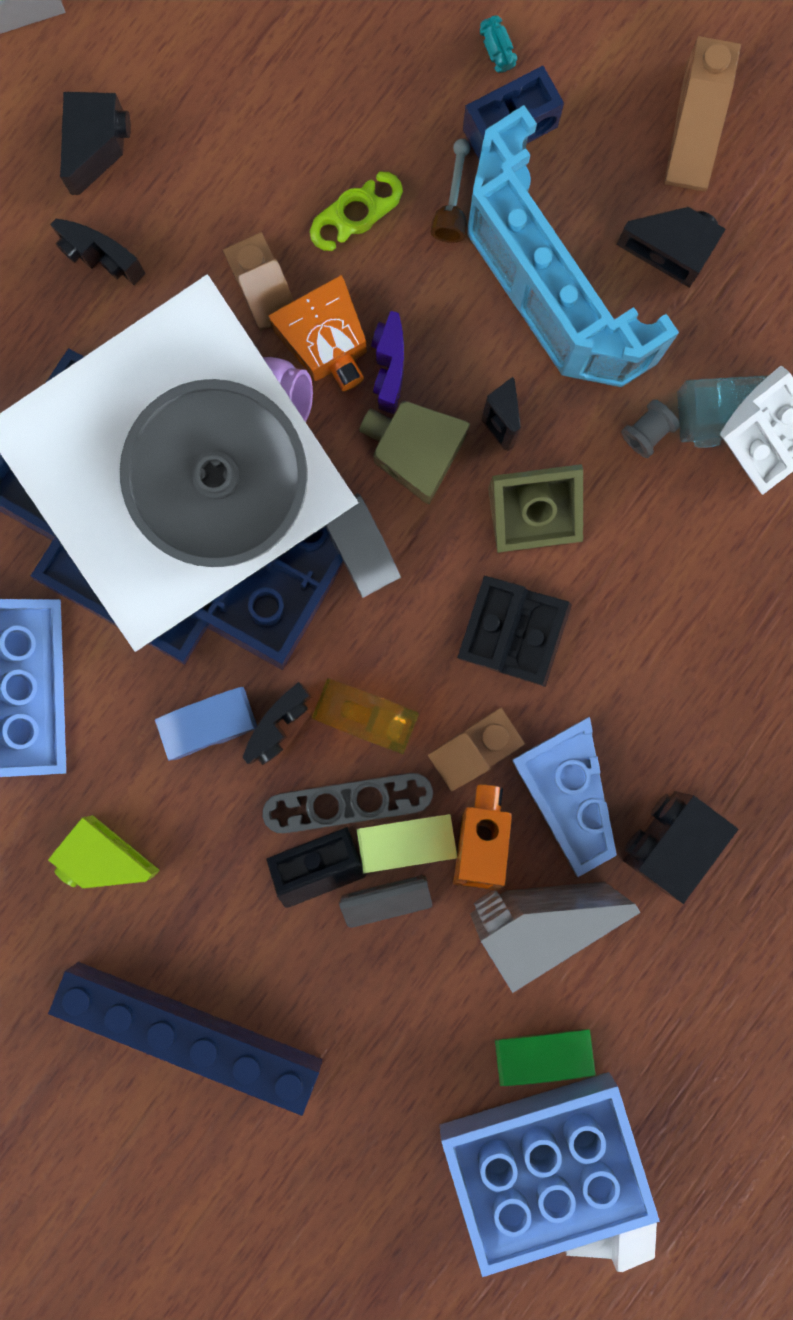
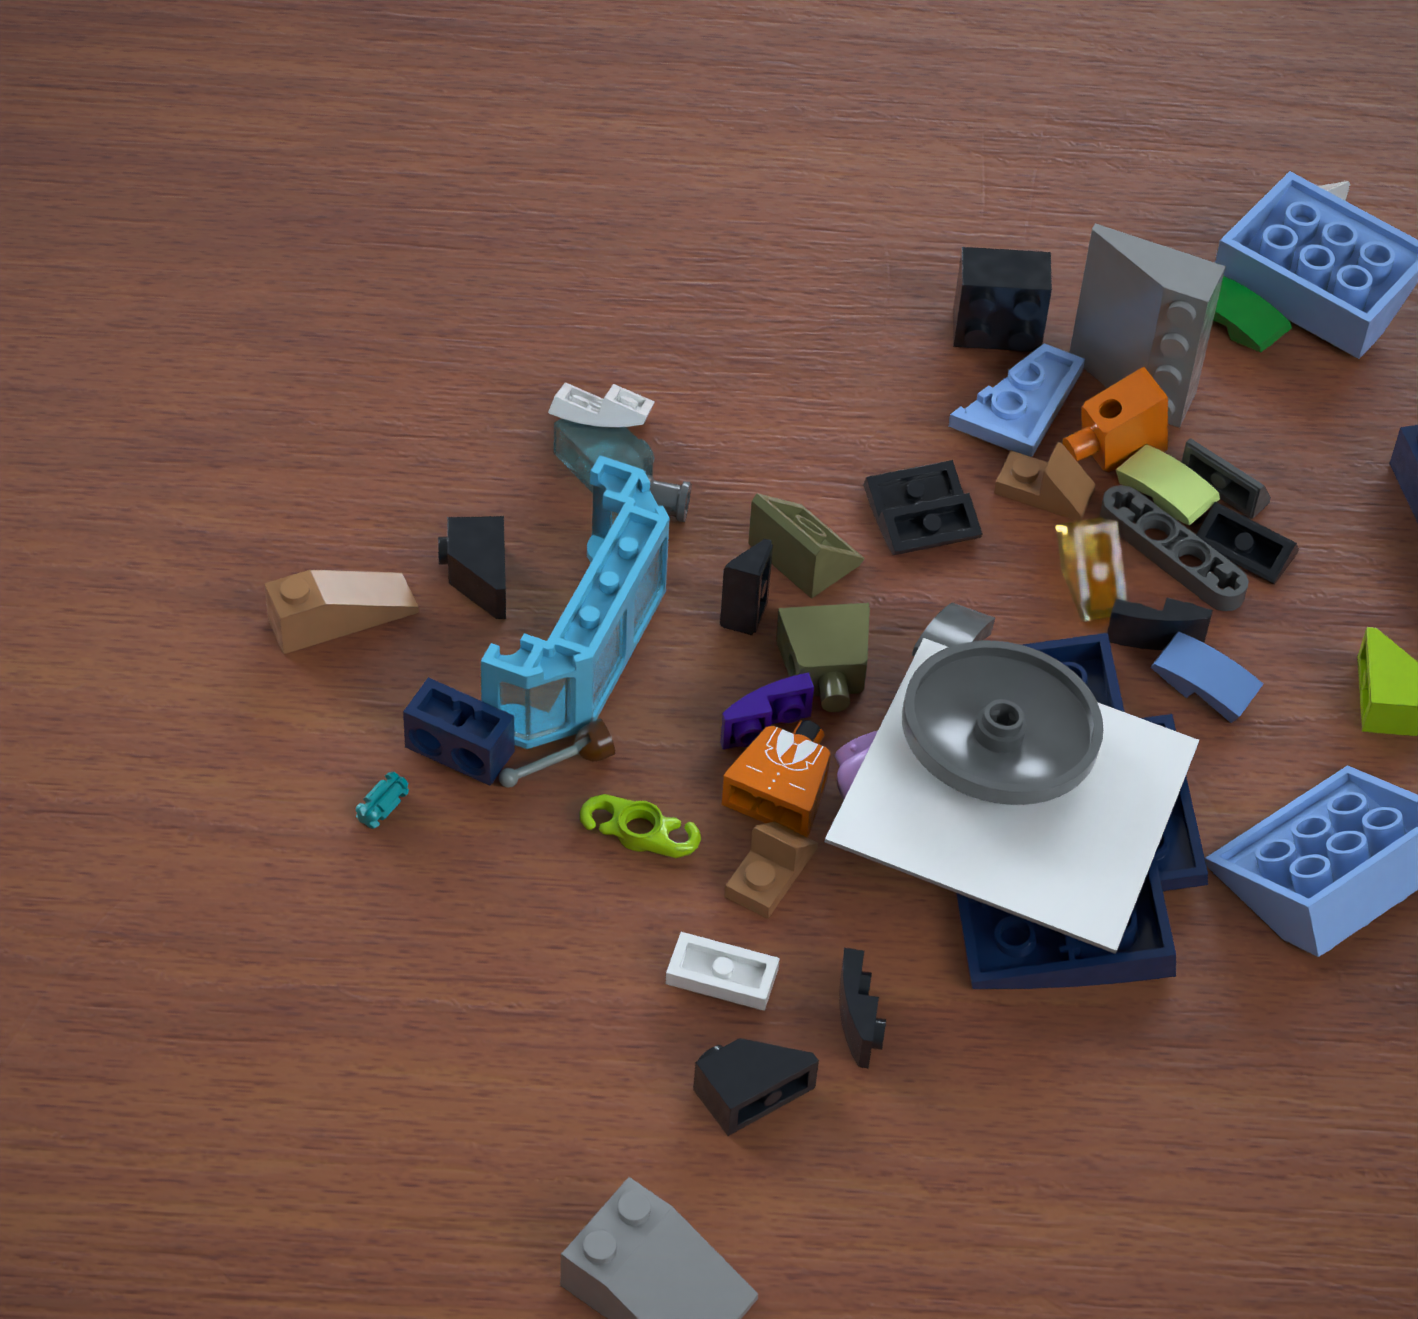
camera: 130 degrees left, 35 degrees down
(192, 181) = (722, 971): none -> white plate

